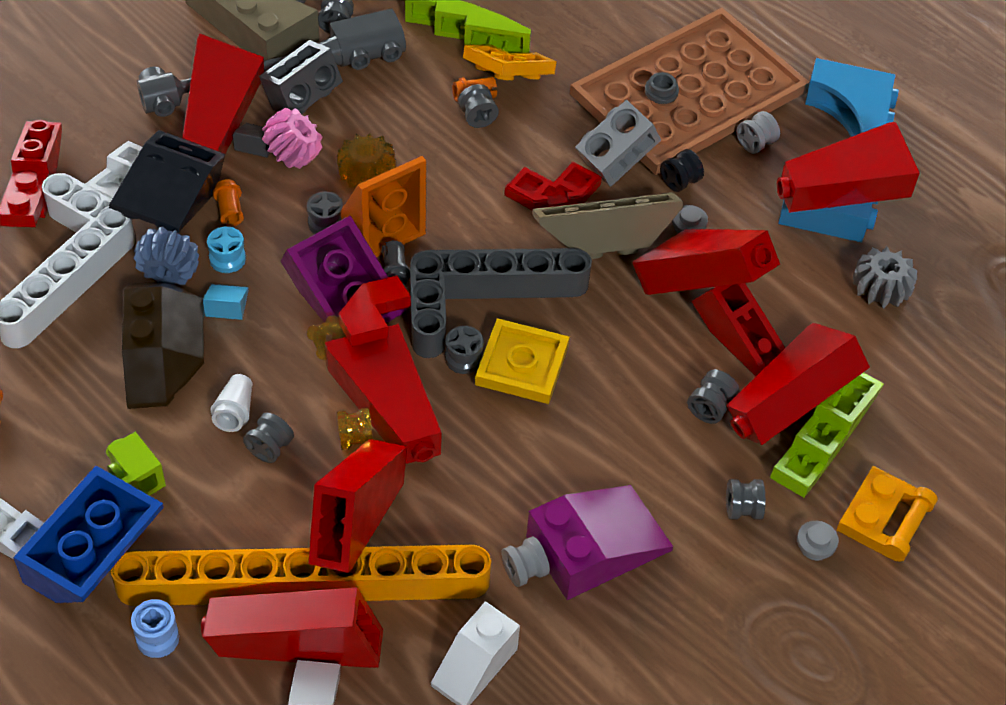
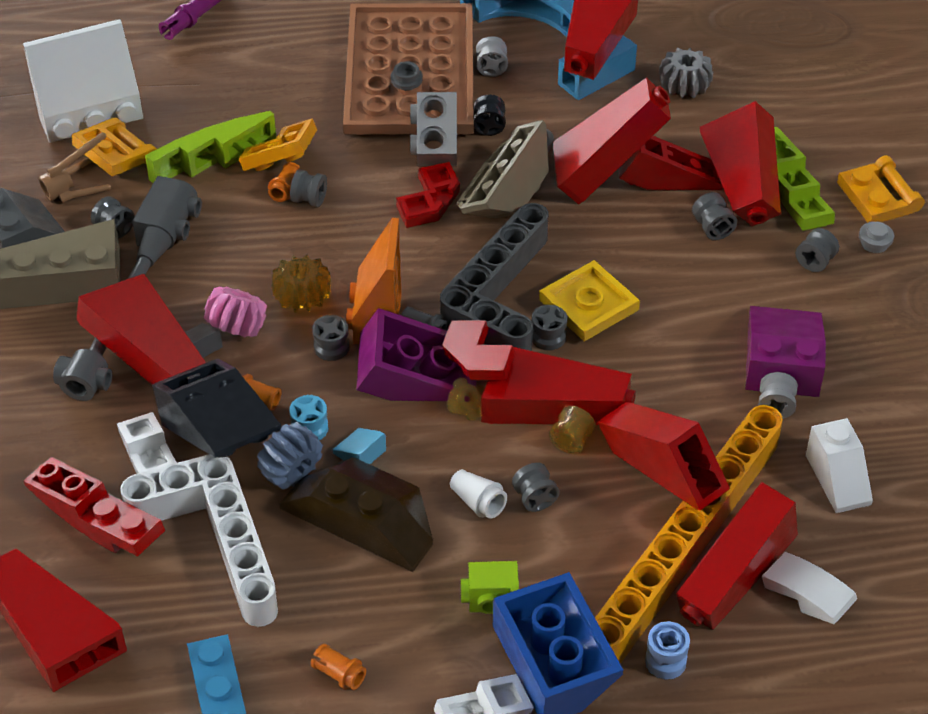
camera: 50 degrees left, 5 degrees down
(301, 78) = (174, 271): dark grey brick -> none

